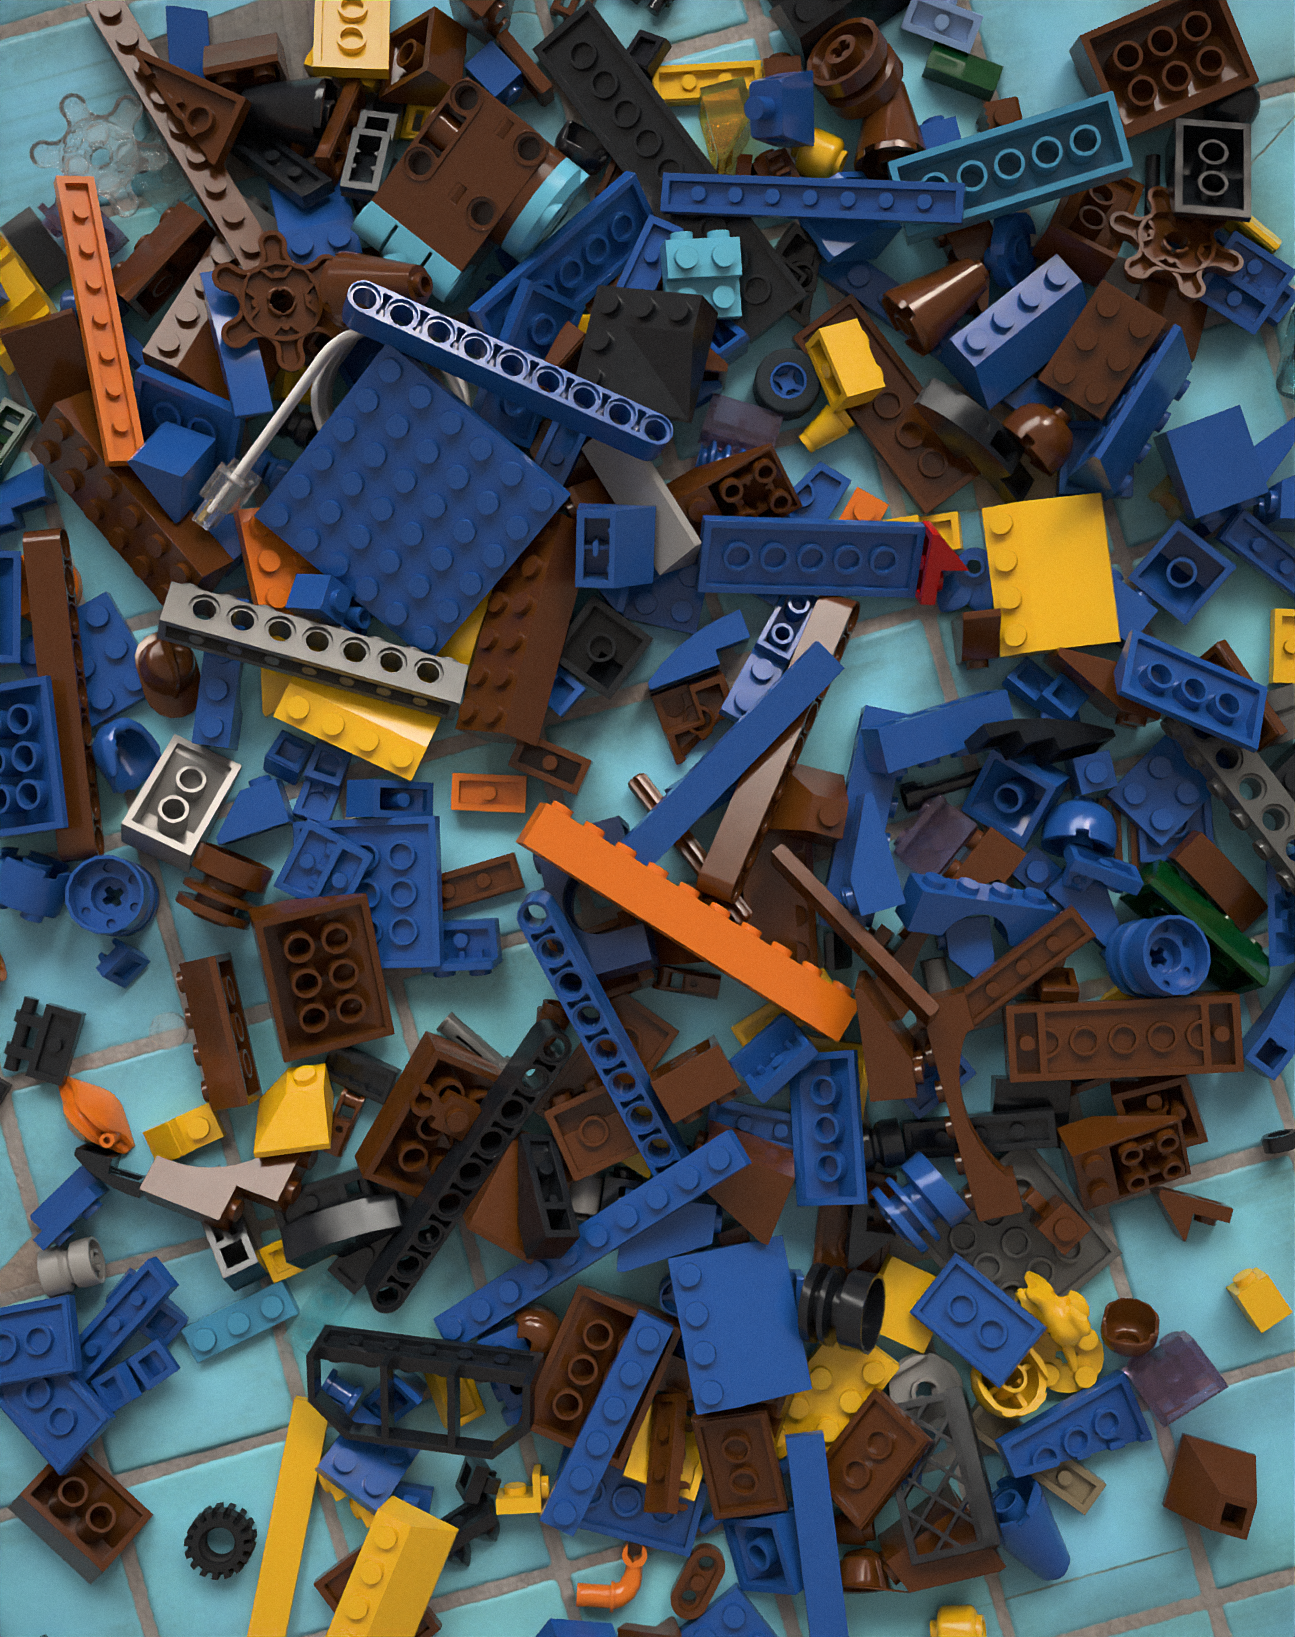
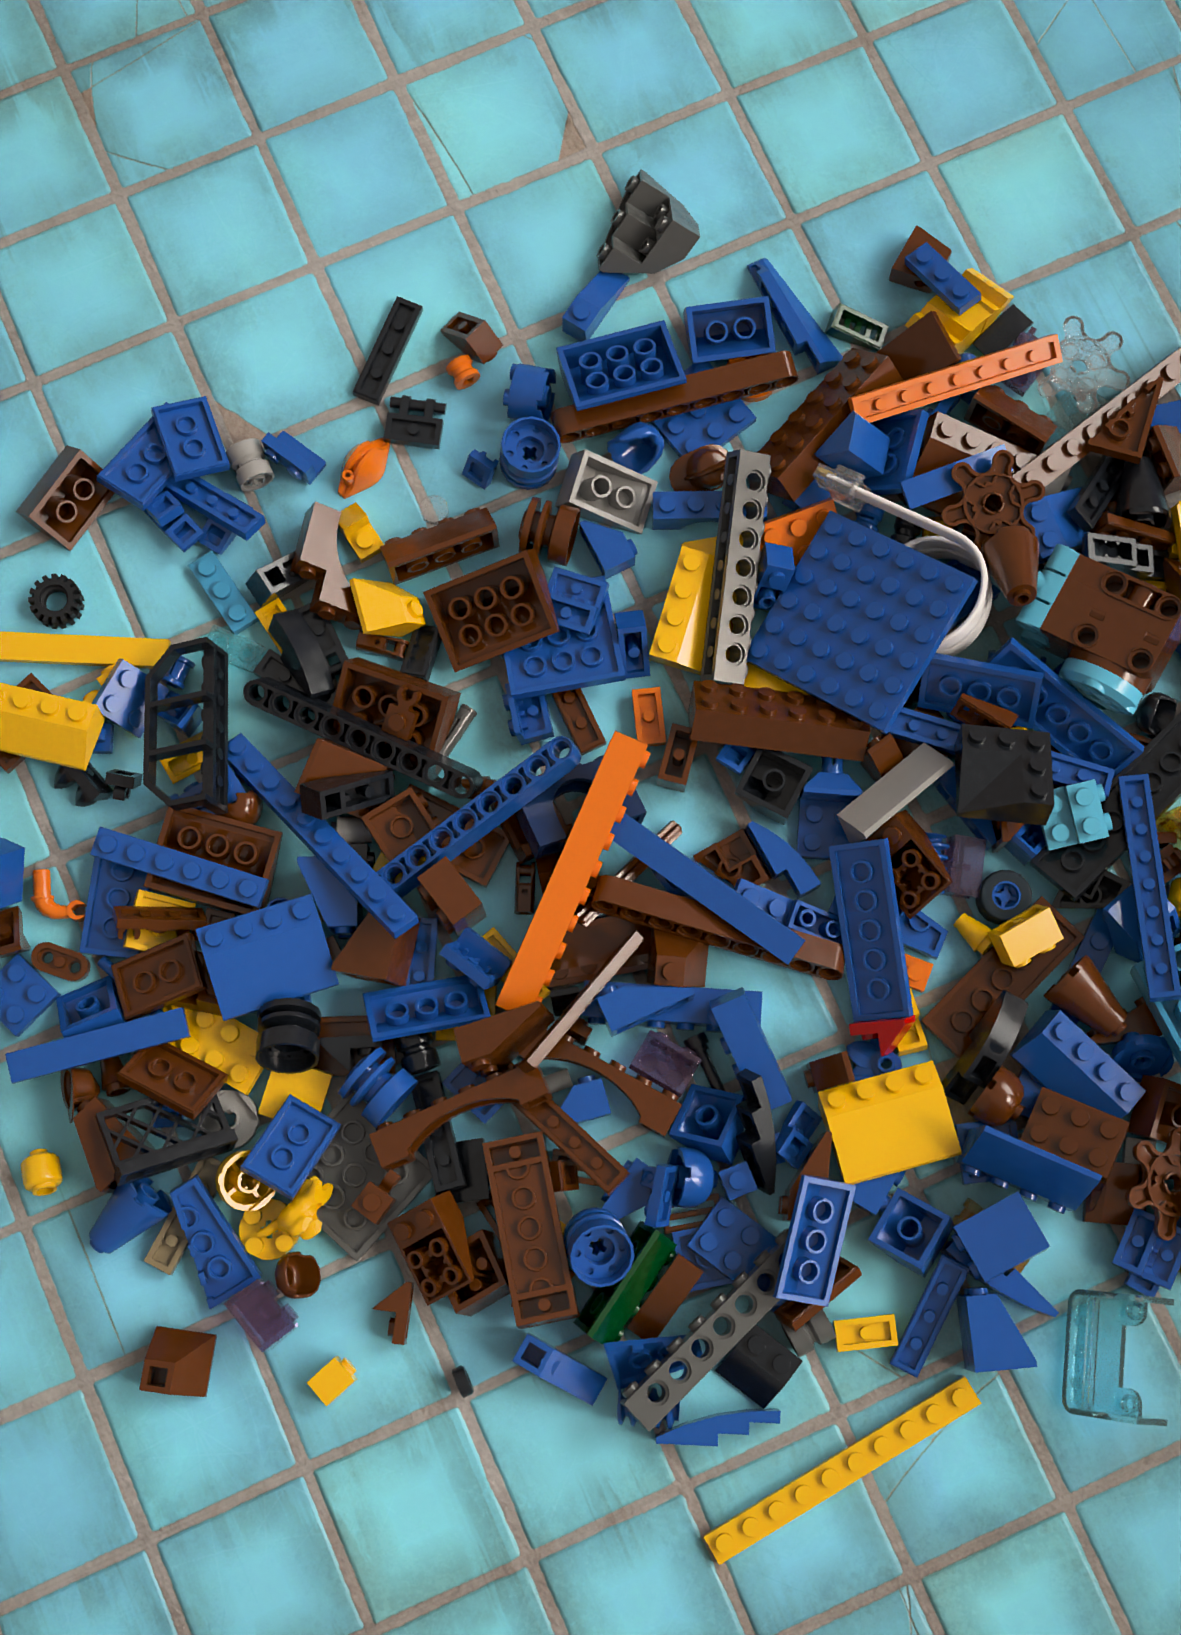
camera: 85 degrees right, 10 degrees down
(104, 1165) = (326, 479): black slope -> none
(288, 757) = (652, 566): blue slope -> none
(322, 783) = (637, 595): blue slope -> none
(488, 373) = (979, 660): blue beam -> none
(519, 1498) = (111, 815): yellow bracket -> none
(614, 545) = (852, 773): blue slope -> none
(939, 902) = (615, 1063): blue arch -> none
(1036, 870) = (651, 1149): blue plate -> none

